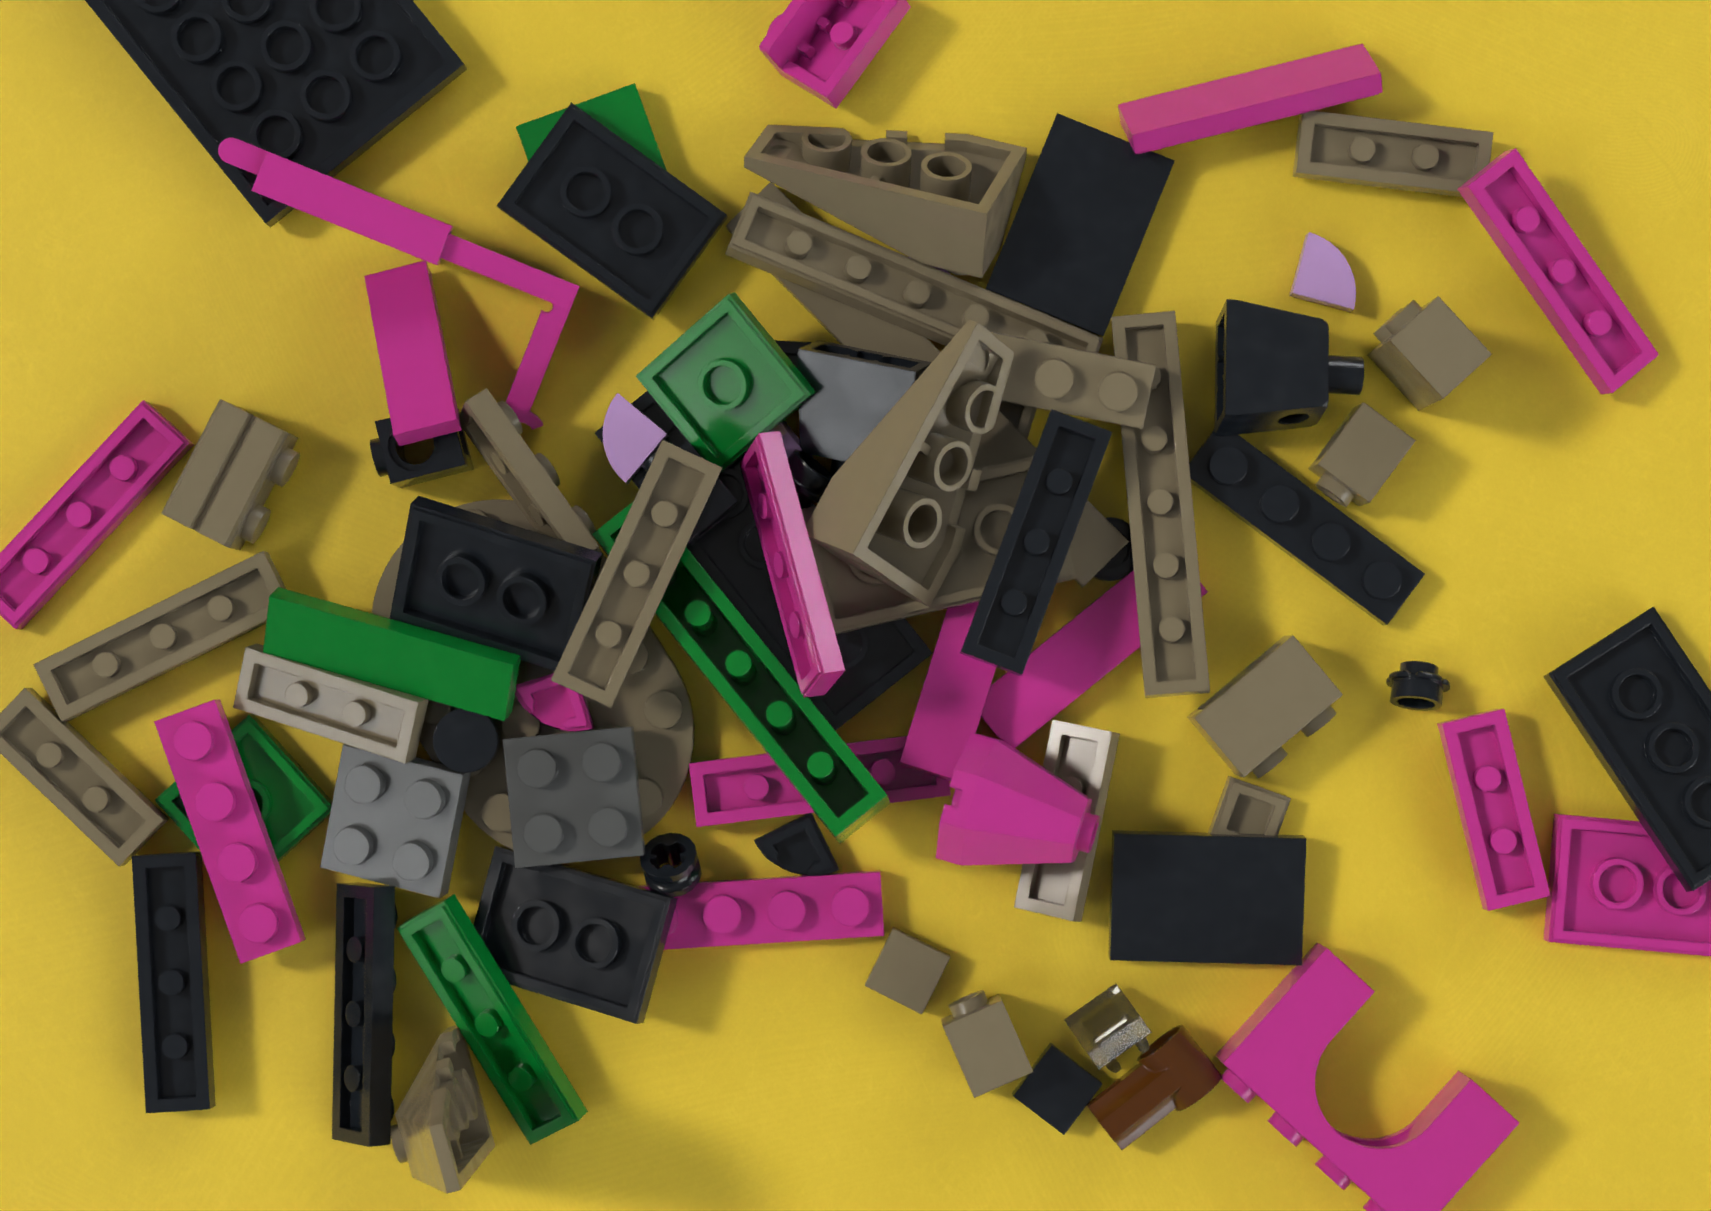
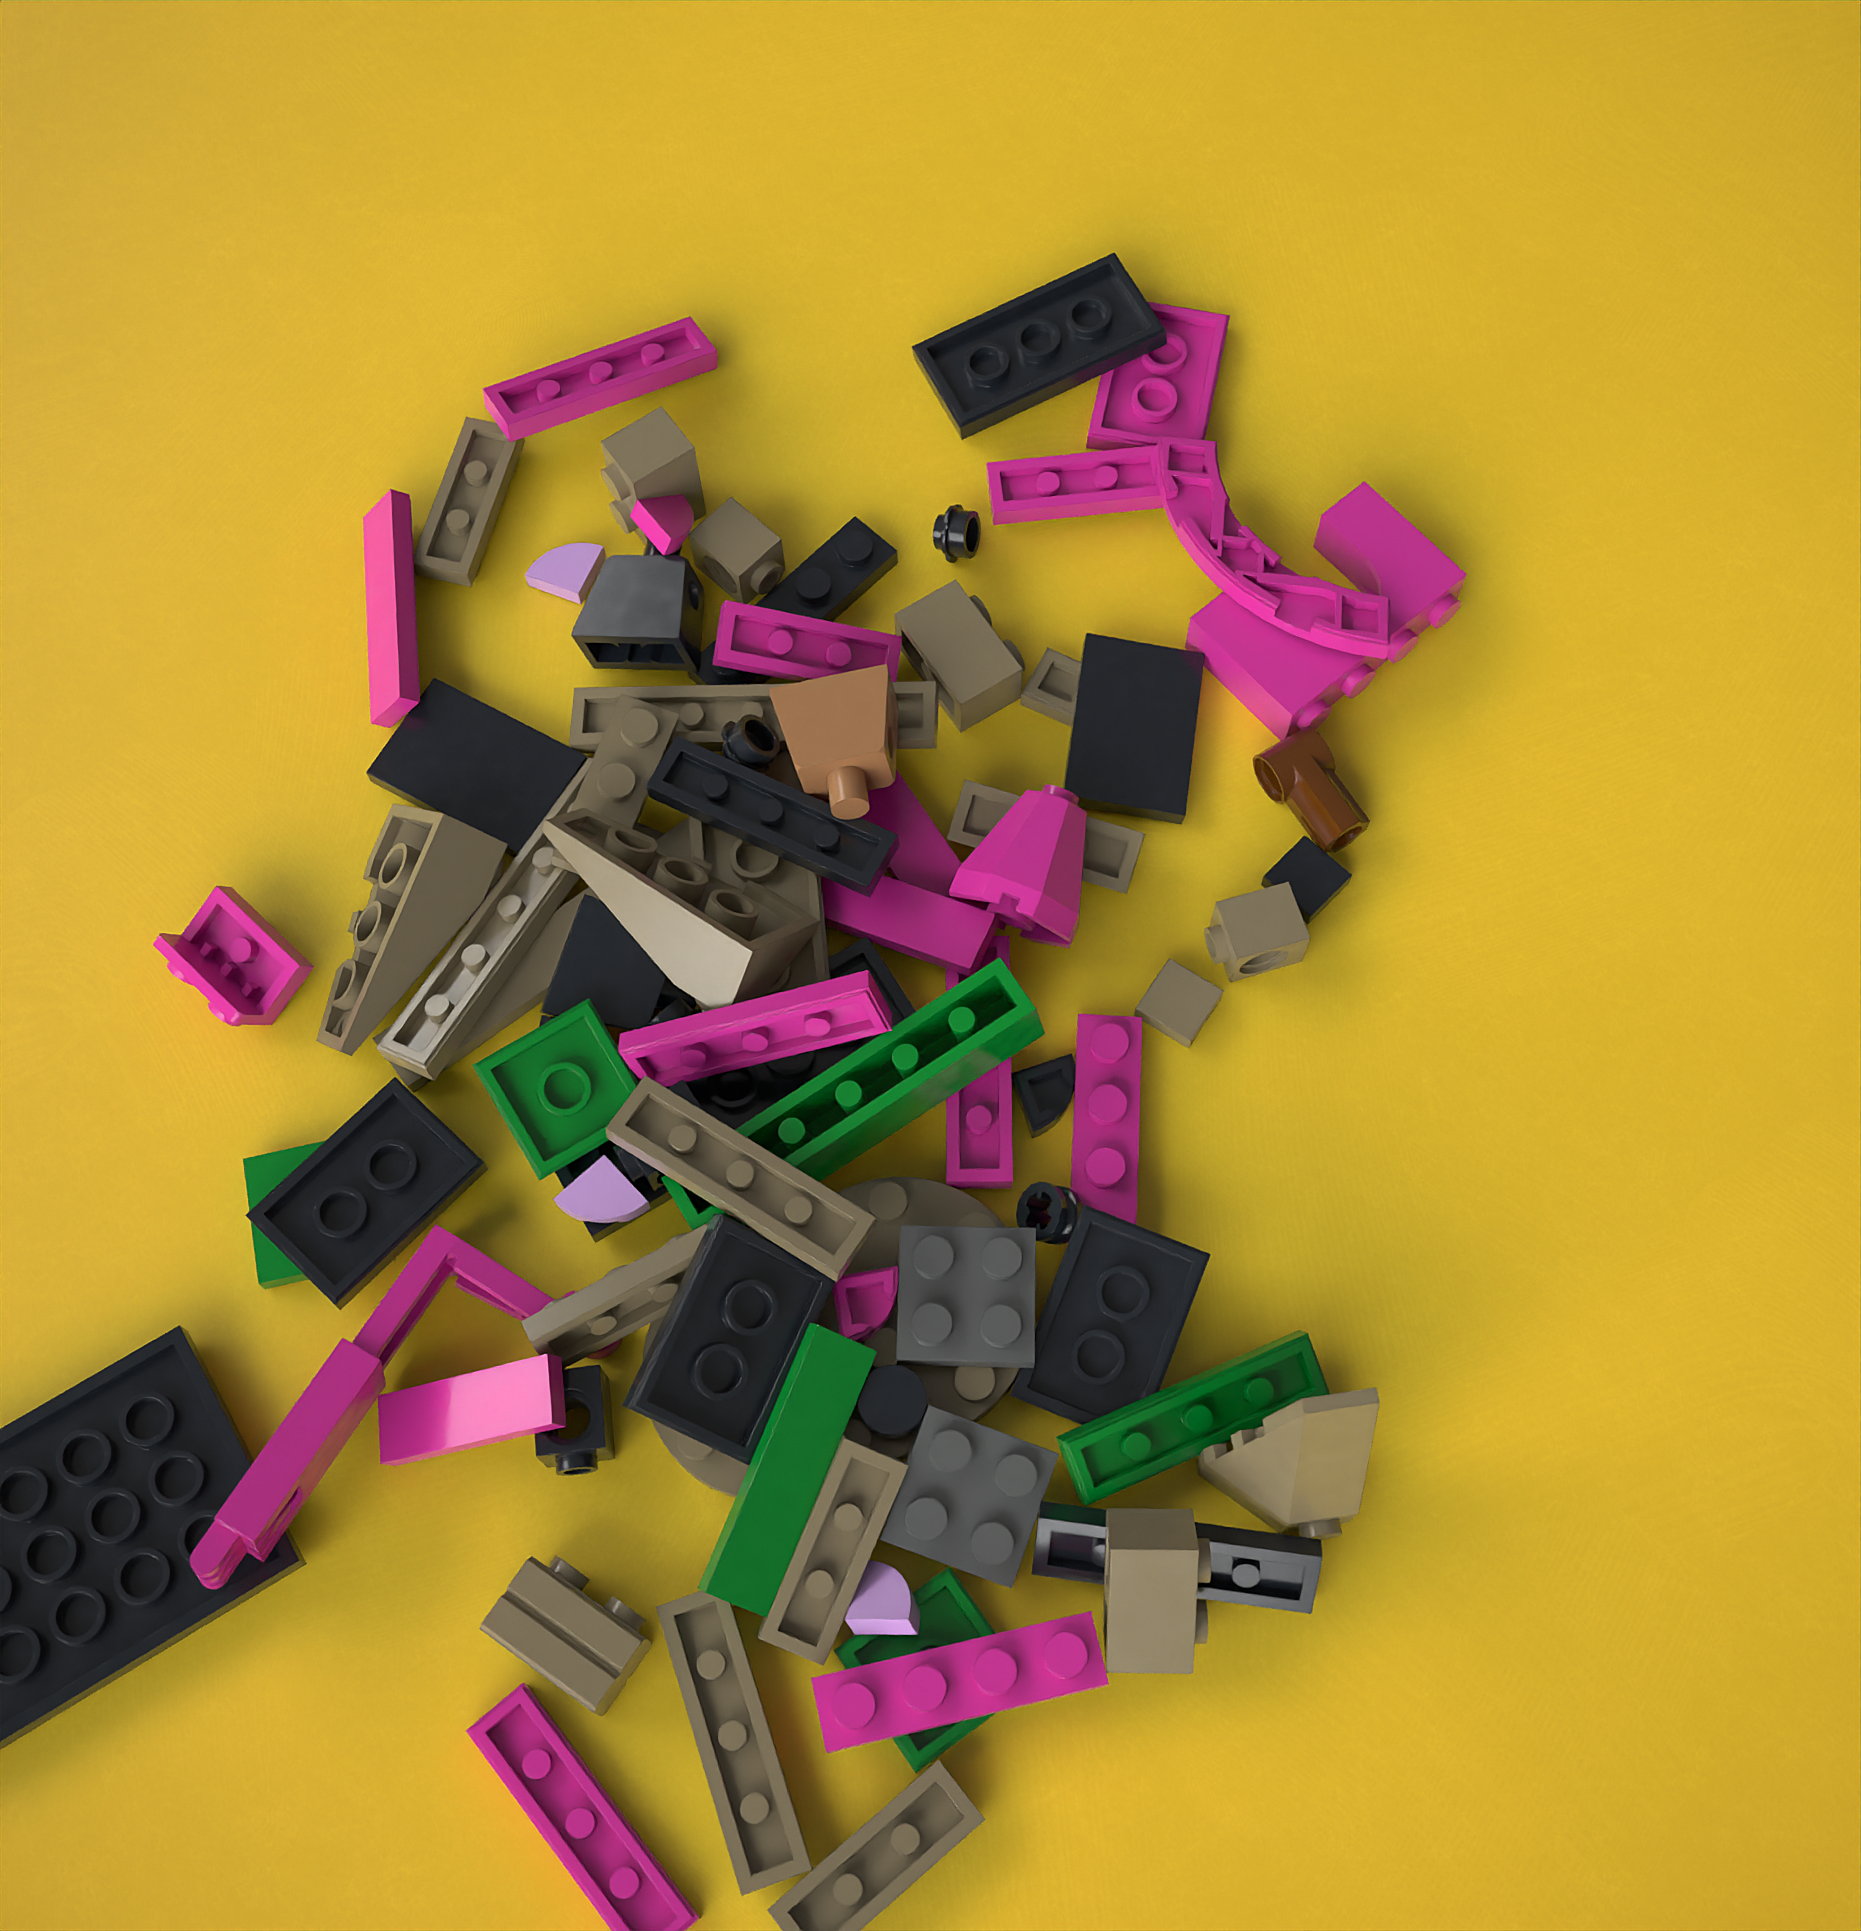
camera: 85 degrees left, 20 degrees down
(173, 982) = (1123, 1774): black plate -> none
(289, 755) = (883, 1603): none -> lavender tile
(321, 996) = (1152, 1590): none -> dark tan brick
(1109, 1028) = (1250, 821): clear smoke tile -> none
(1116, 508) = (750, 742): none -> black plate
(1121, 602) = (841, 735): none -> medium nougat torso
(1244, 548) = (798, 645): none -> dark pink plate
(1371, 377) = (664, 521): none -> dark pink tile
(1393, 1002) = (1250, 569): none -> dark pink tile

